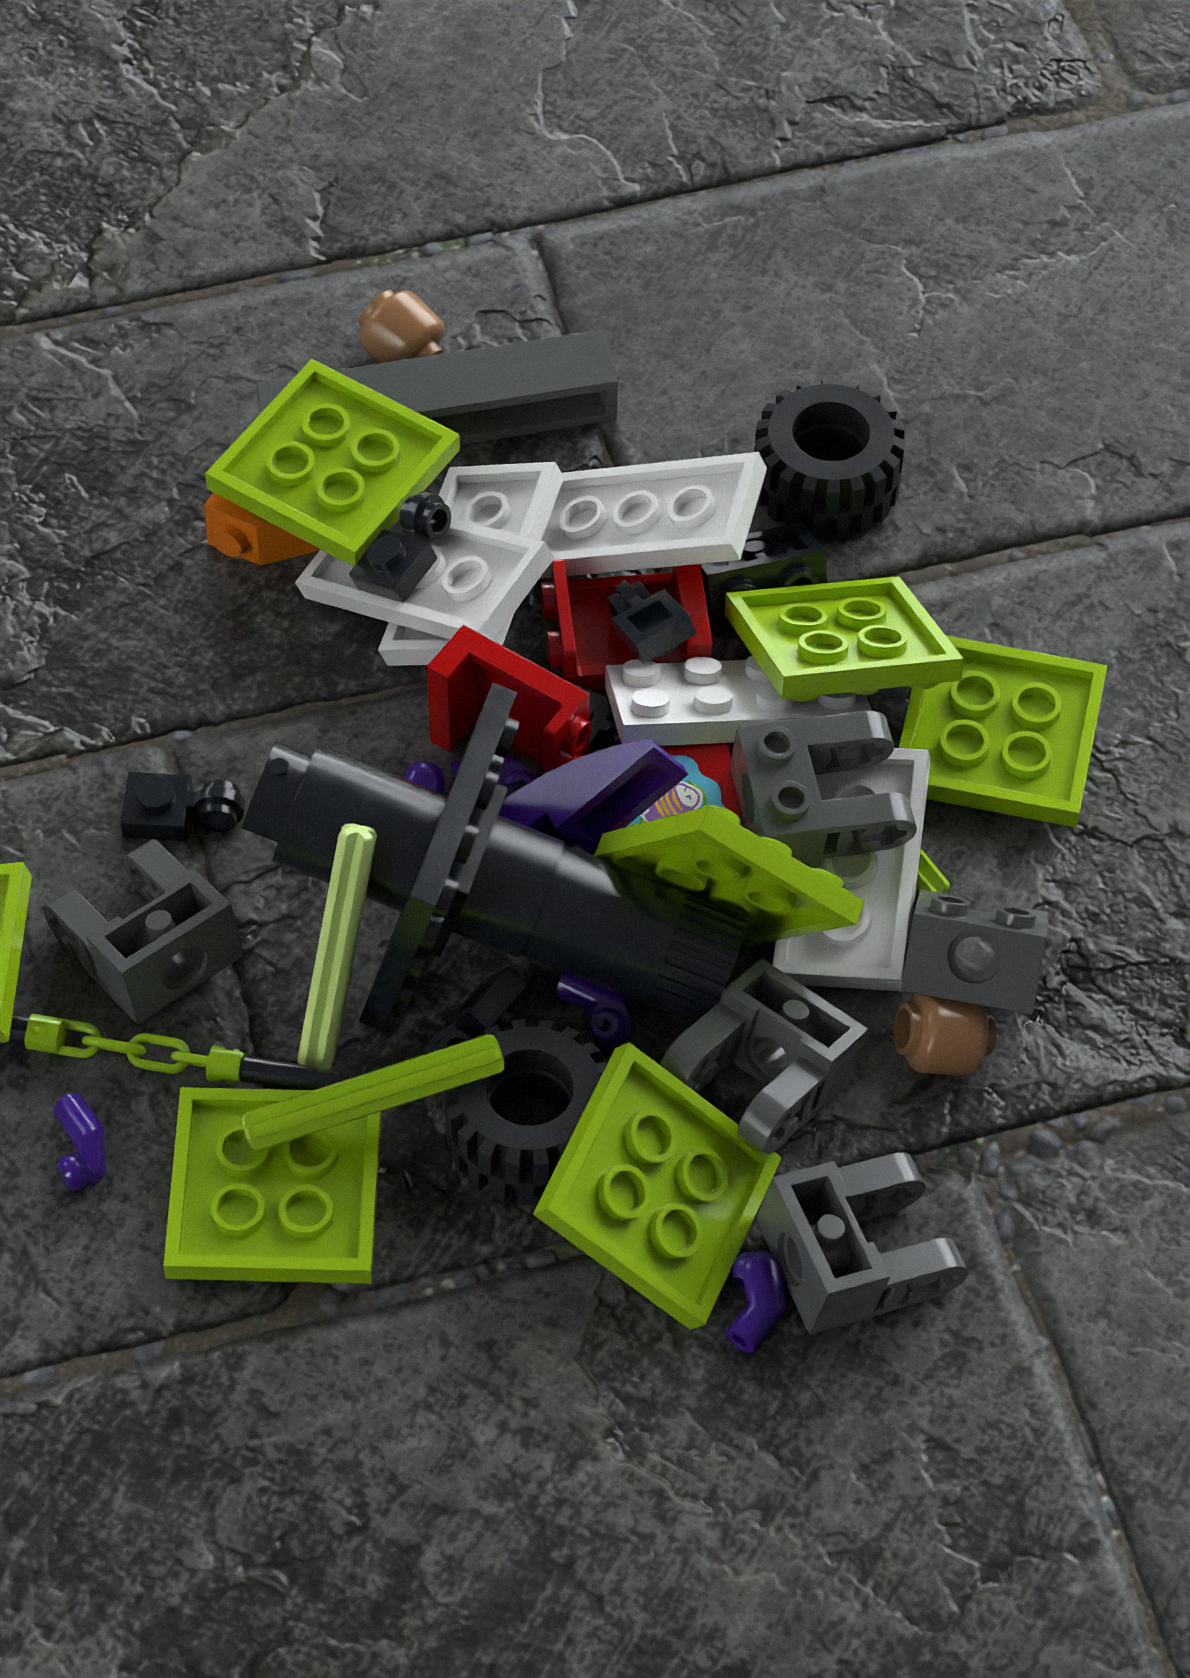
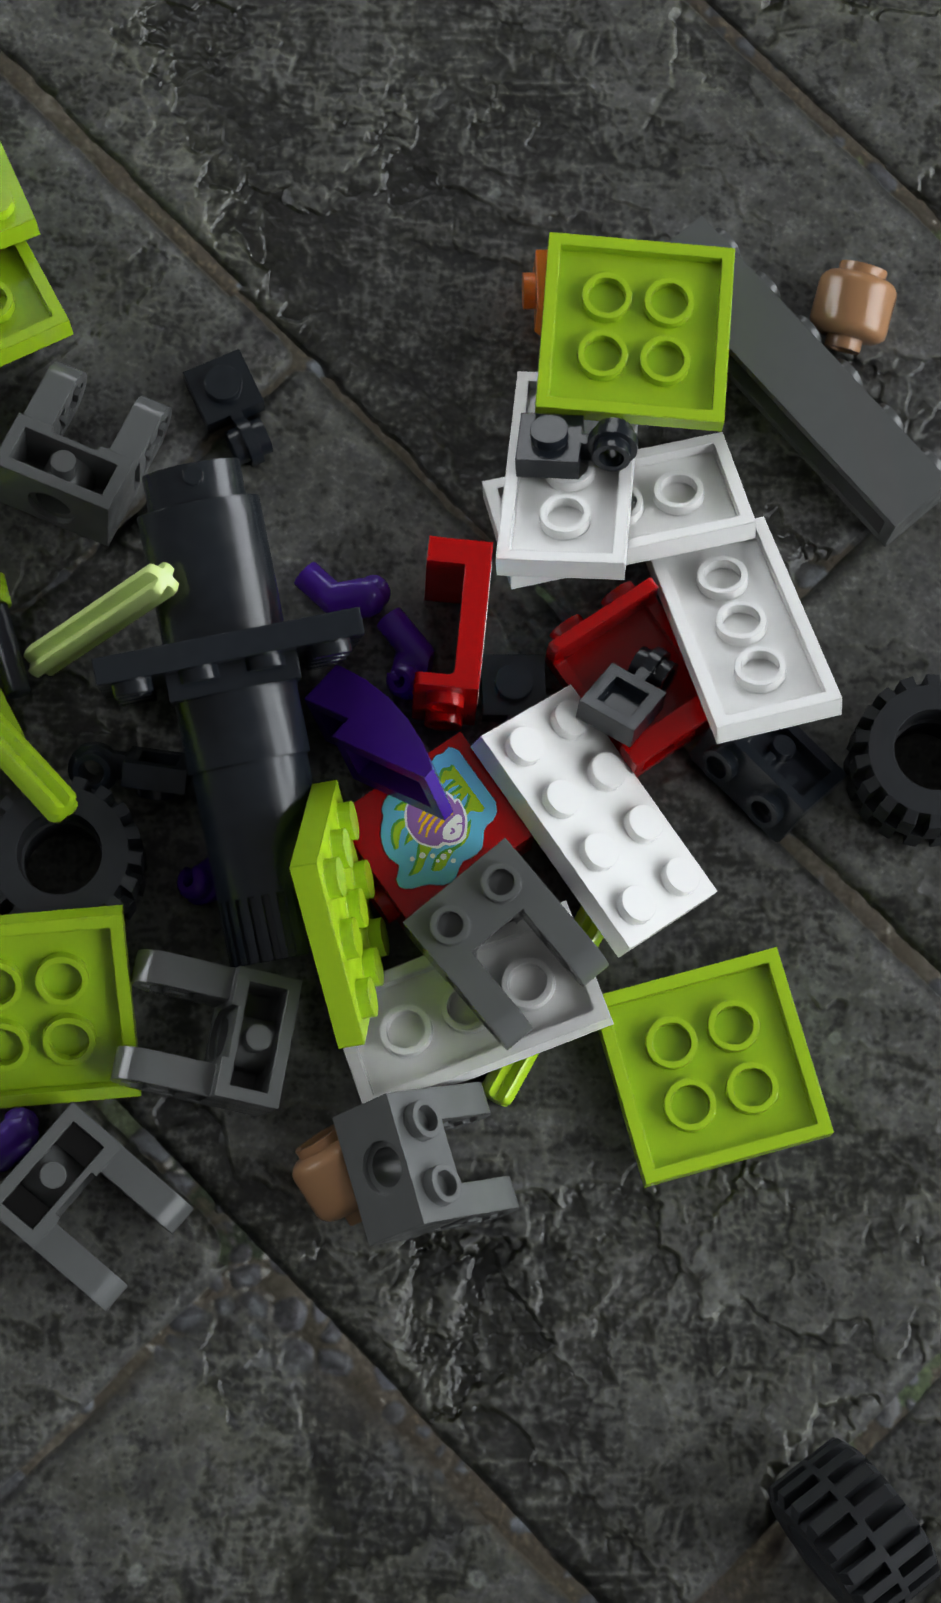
camera: 55 degrees right, 20 degrees up
(843, 638) = (707, 878): lime plate -> none

